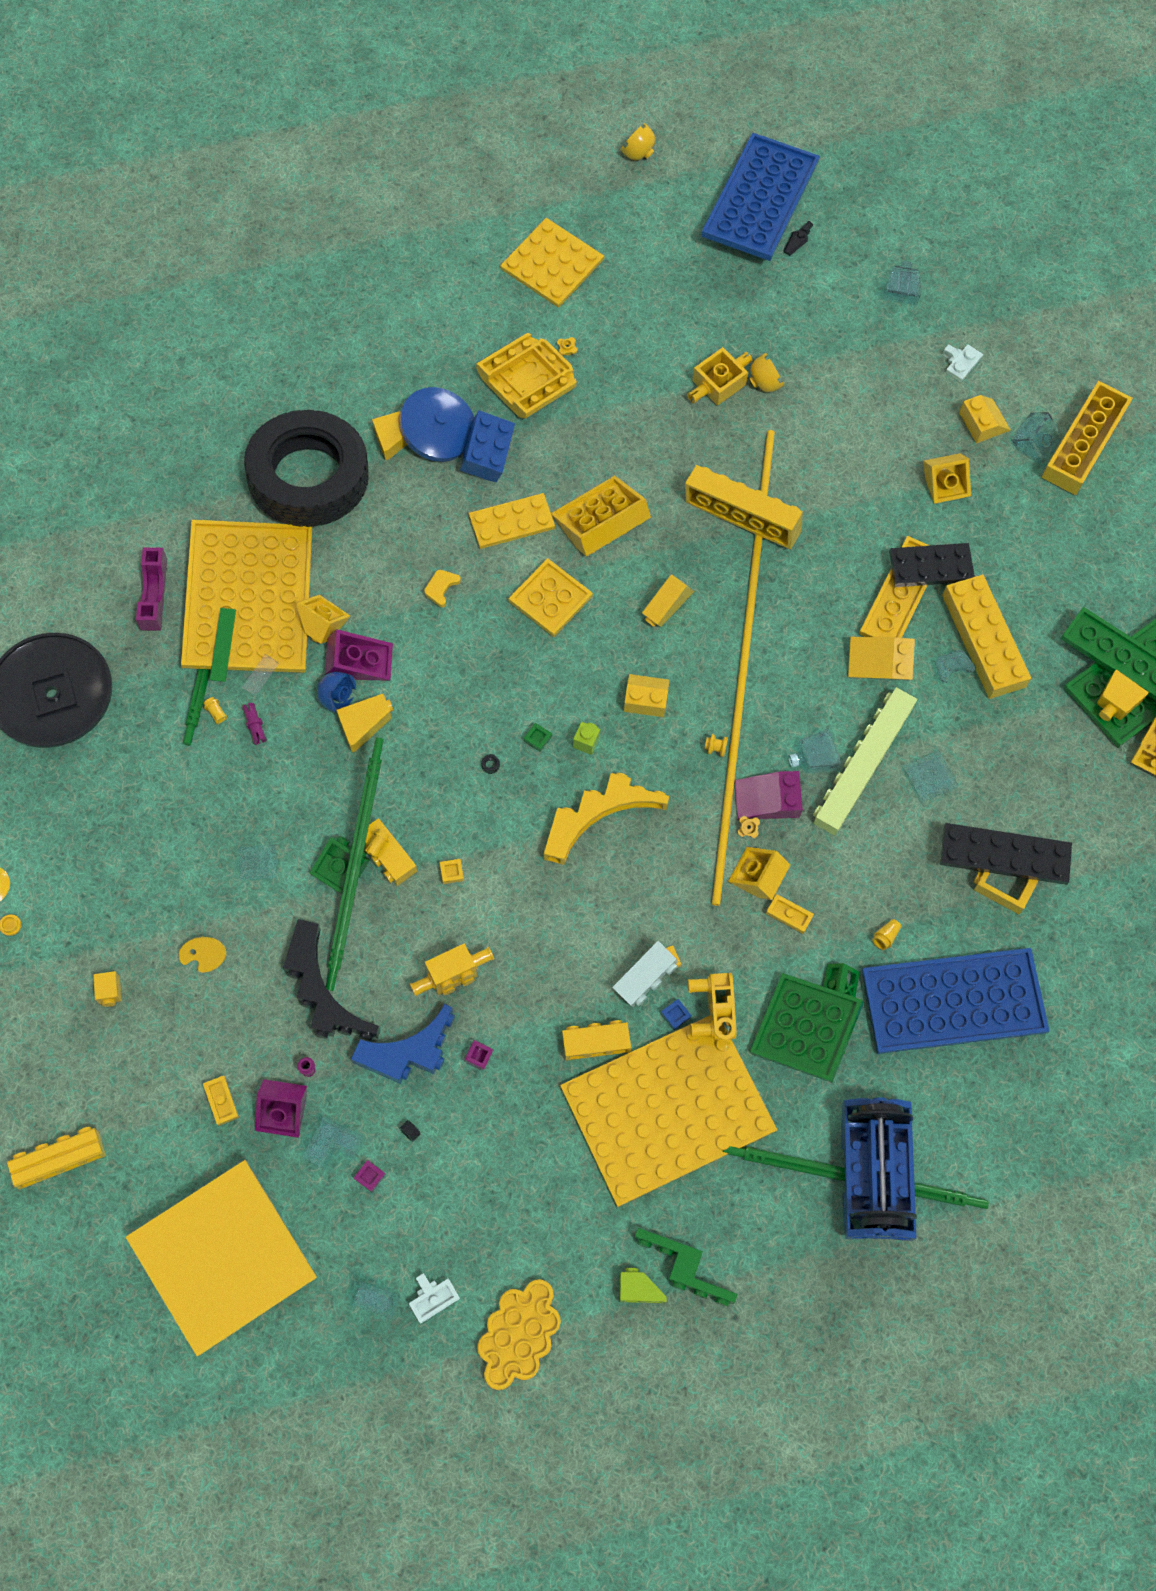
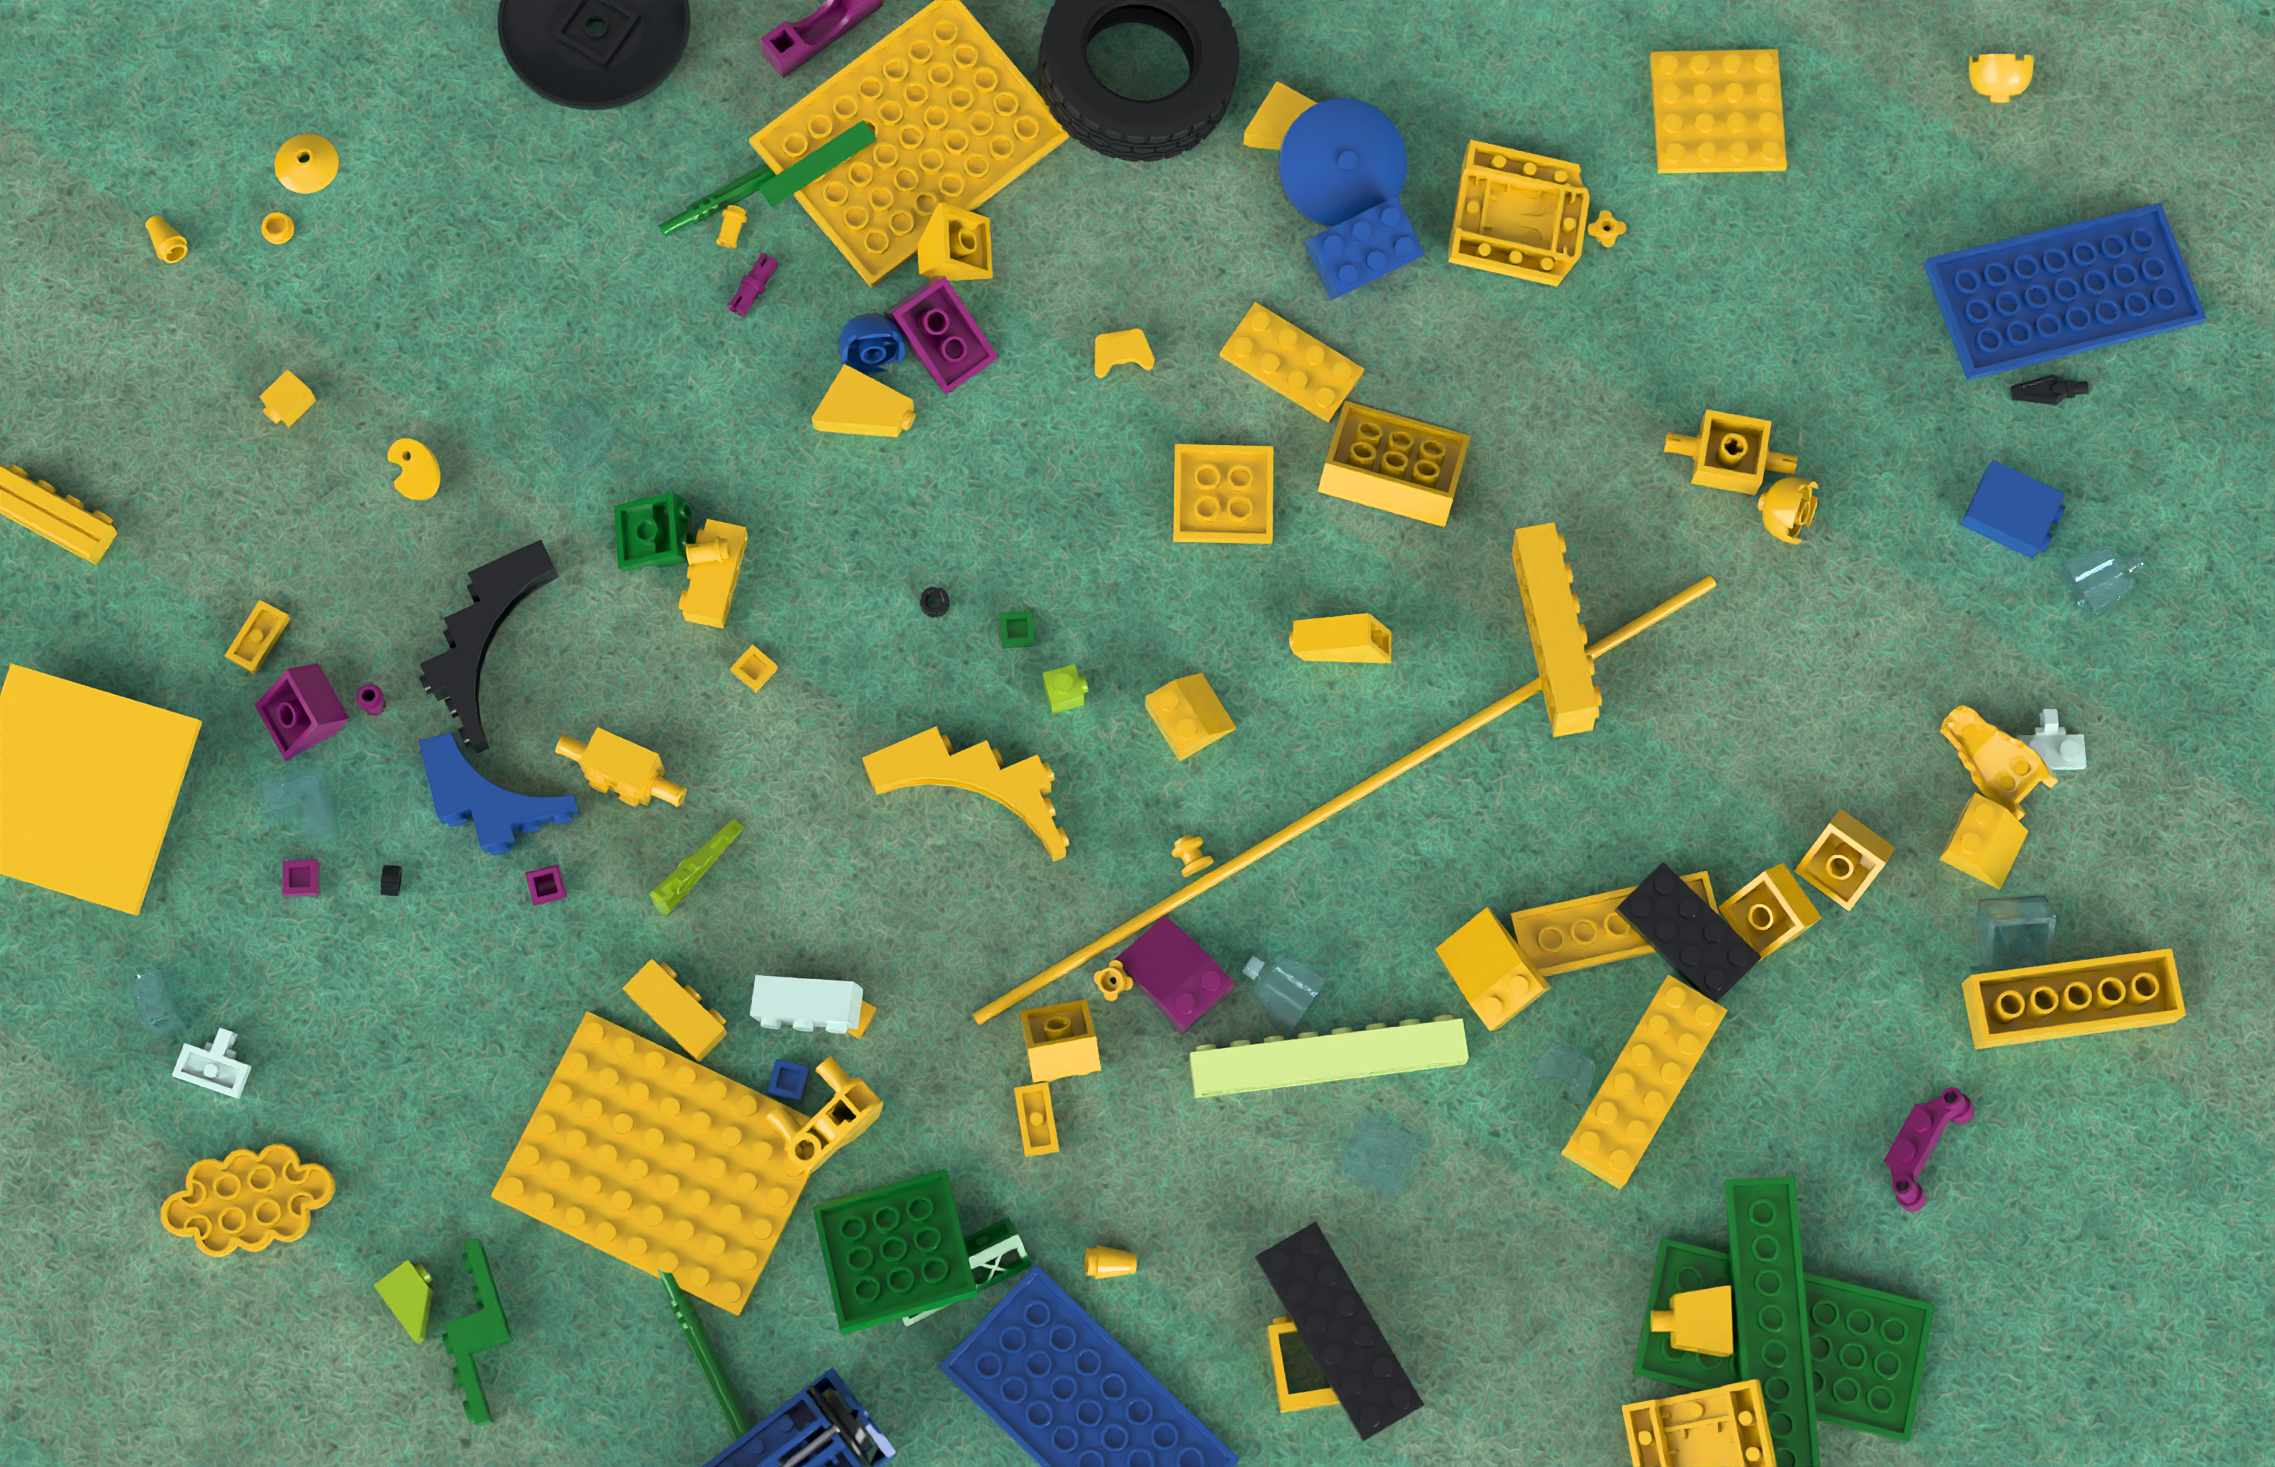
camera: 50 degrees right, 5 degrees up
(260, 675) = (818, 239): clear piece -> none
(354, 864) = (661, 546): green axle -> none
(530, 978) = (692, 868): none -> lime wing
(842, 291) = (2014, 509): none -> blue brick
(947, 524) = (1770, 911): none -> yellow slope
(951, 384) = (1998, 763): none -> yellow animal
(1102, 549) = (1918, 1140): none -> magenta plate

